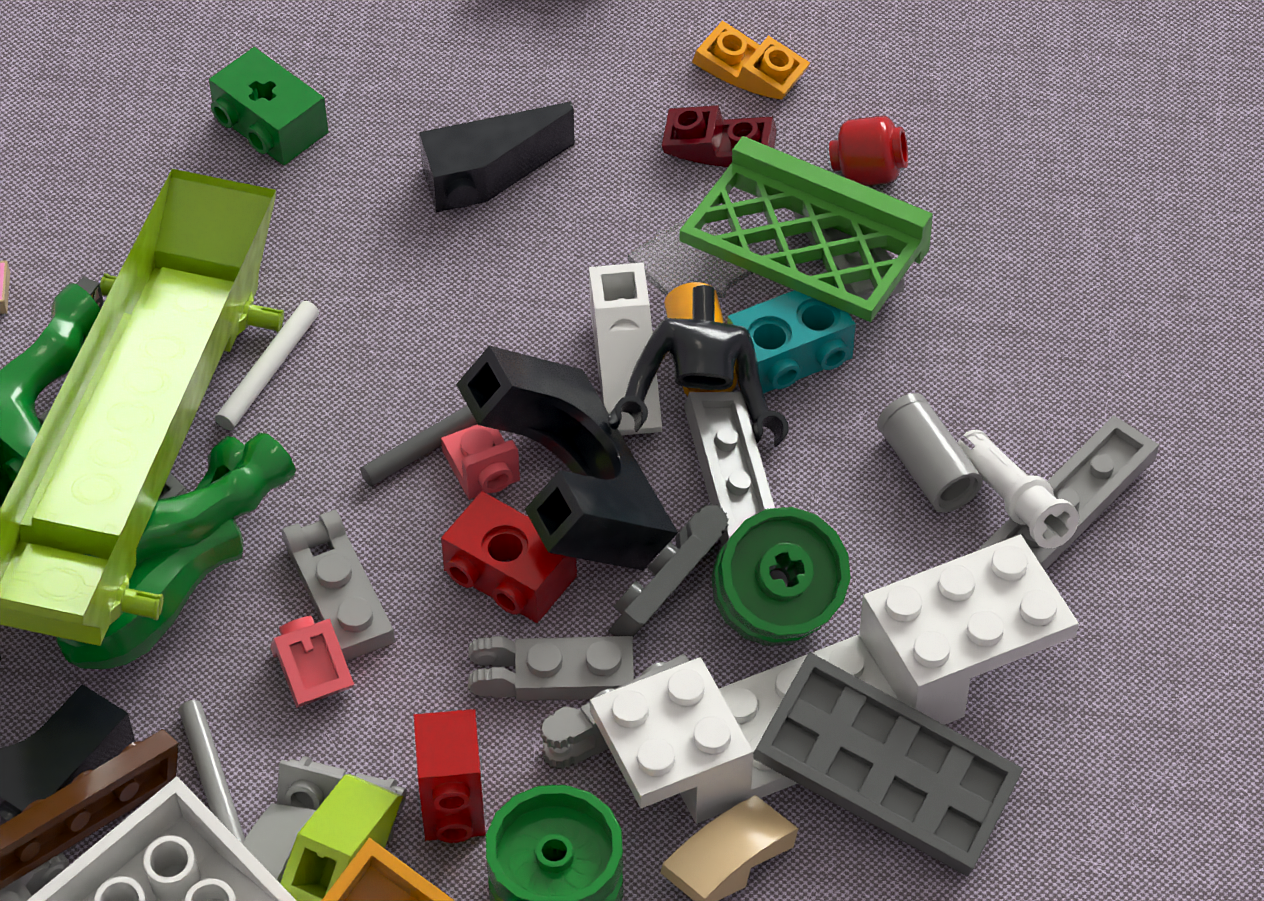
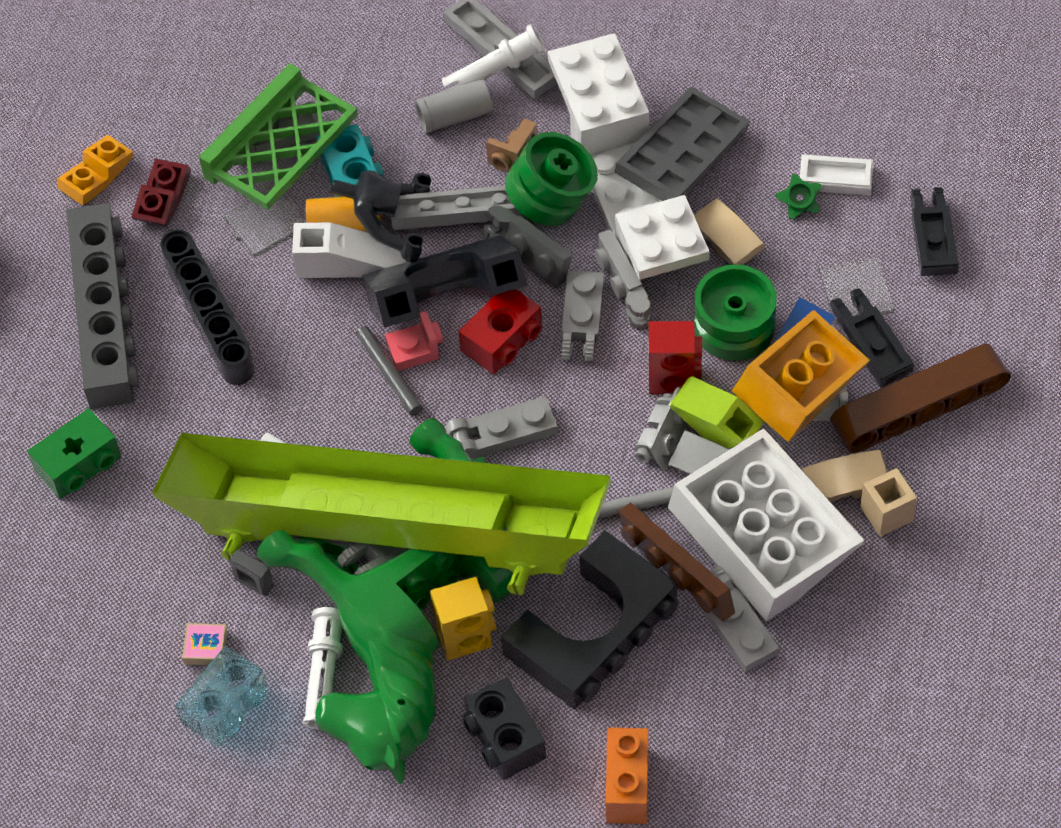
camera: 80 degrees left, 5 degrees up
(311, 660) = (562, 439): coral bracket -> none
(486, 156) = (157, 326): black slope -> none
(518, 208) = (185, 264): none -> black beam
(596, 74) = (95, 252): none -> dark grey brick
(869, 150) = (199, 108): red head -> none
(870, 546) = (504, 155): none -> medium nougat bracket

